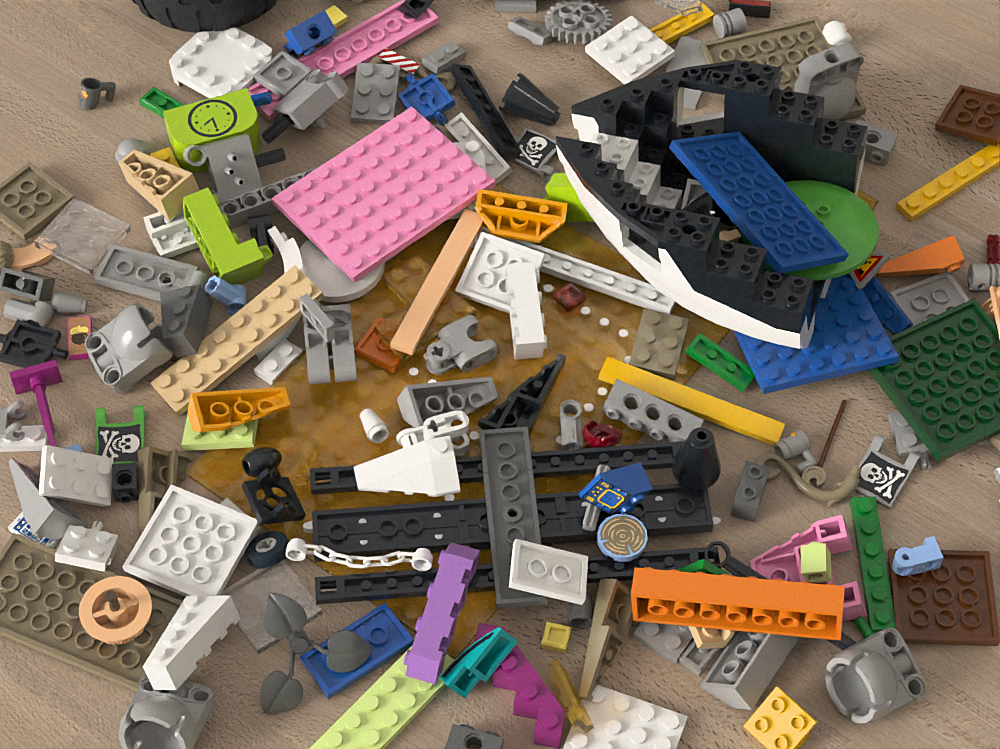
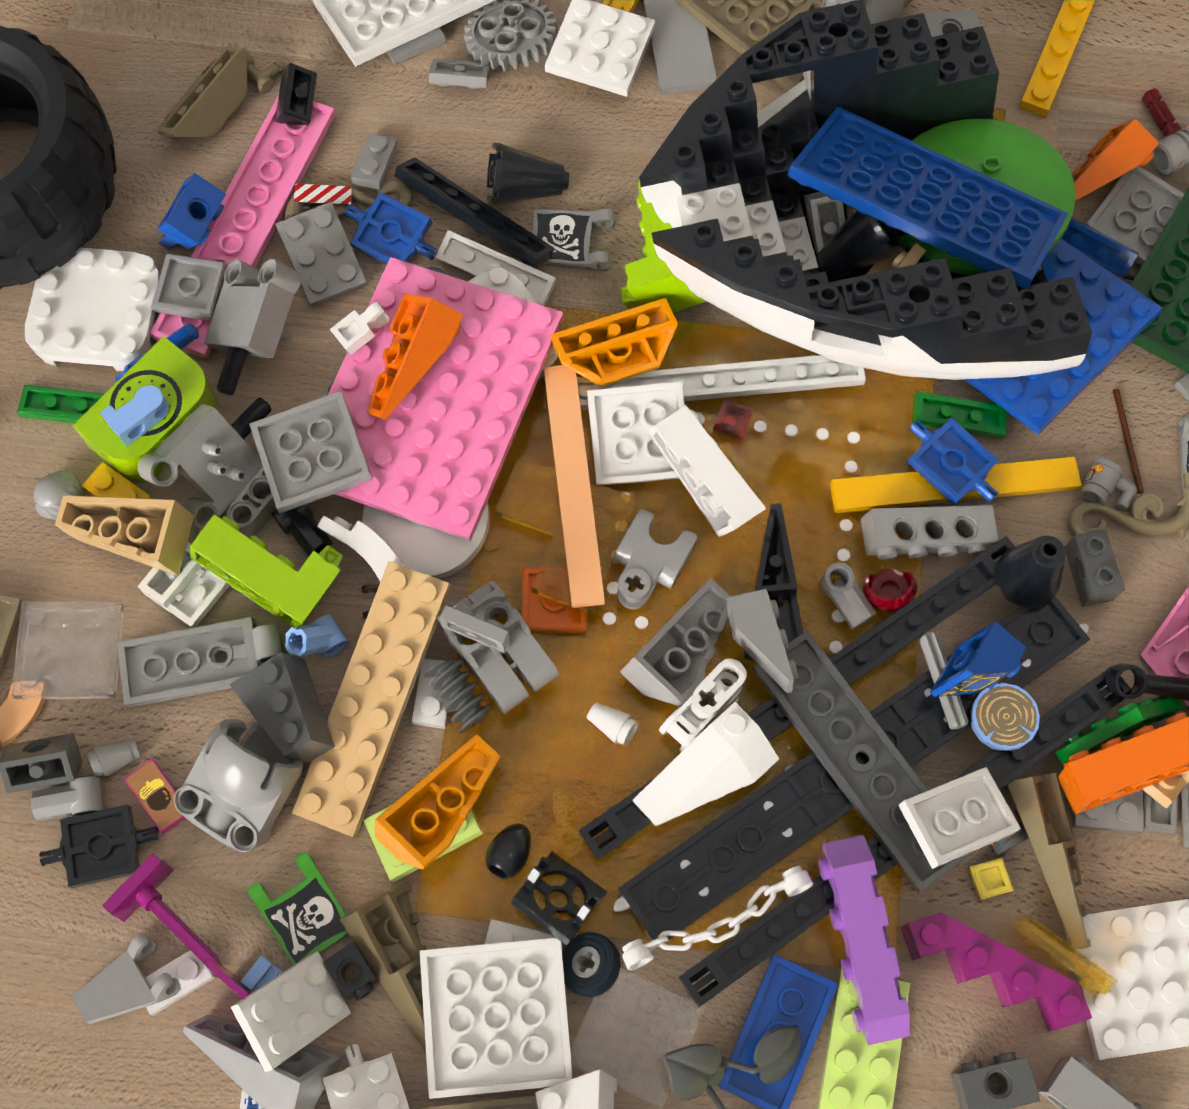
camera: 30 degrees left, 15 degrees up
(202, 120) = (137, 415): none -> light blue leg
(289, 186) = (310, 452): none -> light grey plate
(290, 362) = (459, 694): none -> dark grey piece
(336, 16) = (197, 164): light yellow tile -> none
(362, 133) = (356, 331): none -> white plate
(397, 151) = (421, 335): none -> orange wedge
(478, 661) = (942, 978): teal slope -> none
(493, 409) = (757, 632): none -> light grey slope
(659, 343) = (873, 427): dark tan plate -> none
(694, 381) = (952, 461): none -> blue plate

